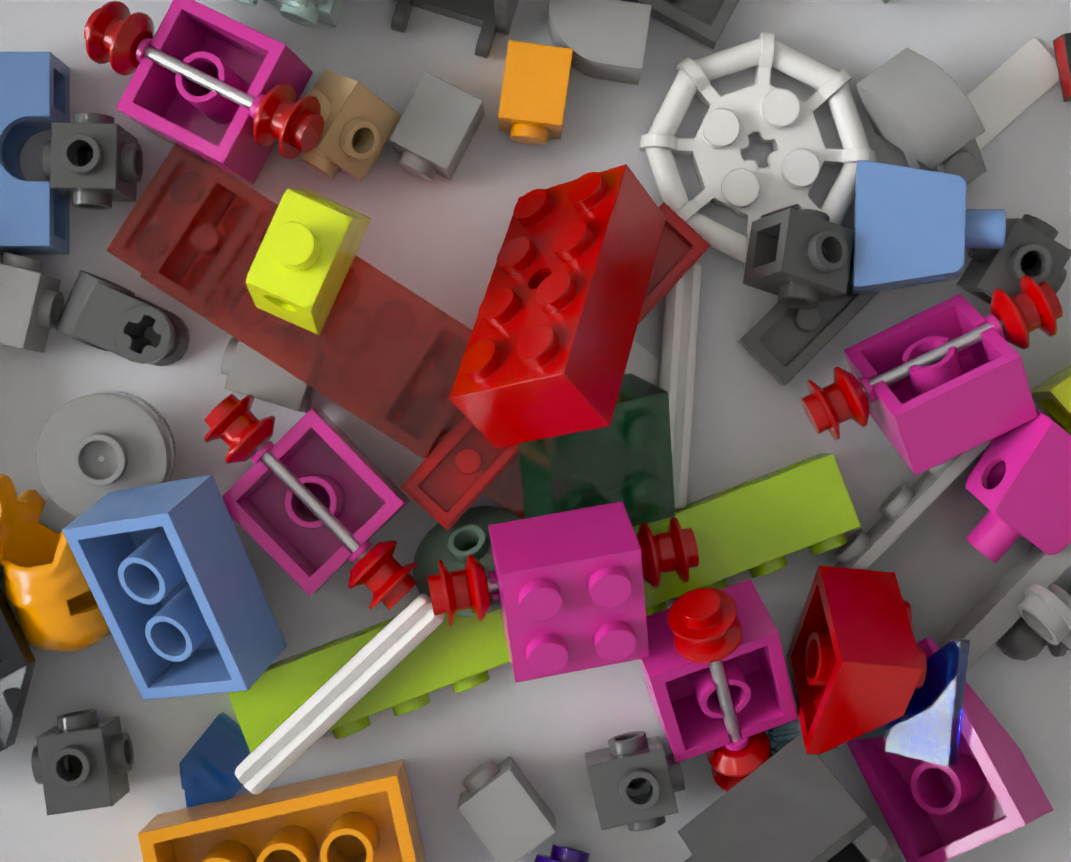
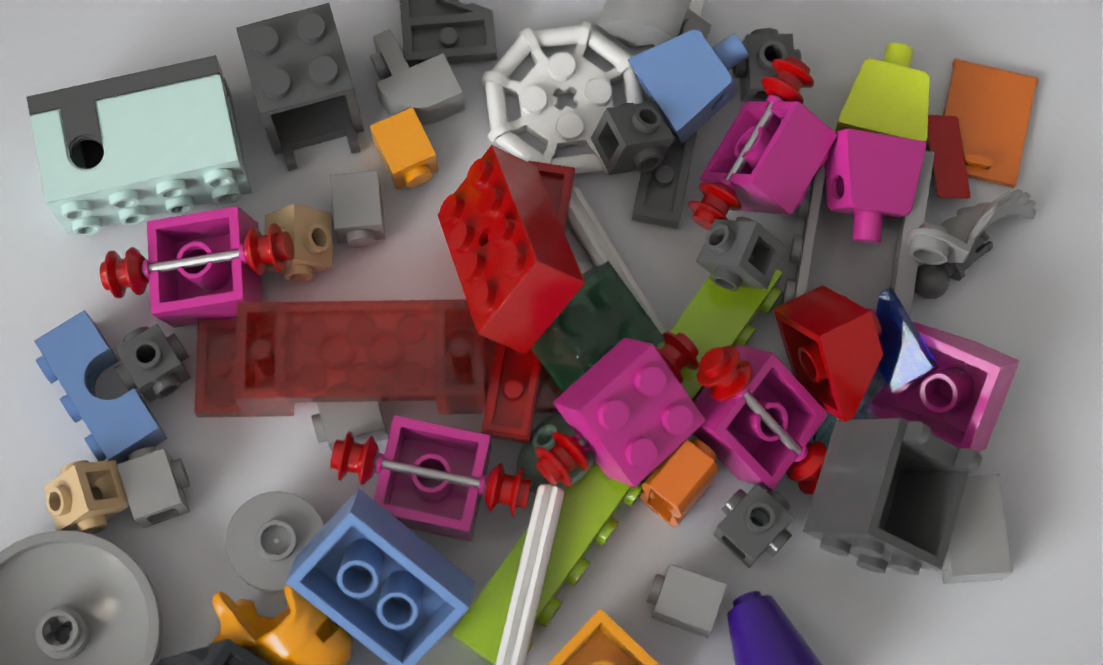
camera: 40 degrees left, 15 degrees down
(117, 320) = (224, 453): dark grey piece -> none
(305, 258) = (336, 312): neon yellow torso -> none
(585, 697) = (680, 481): none -> orange brick
(824, 485) = (740, 254): none -> dark grey brick

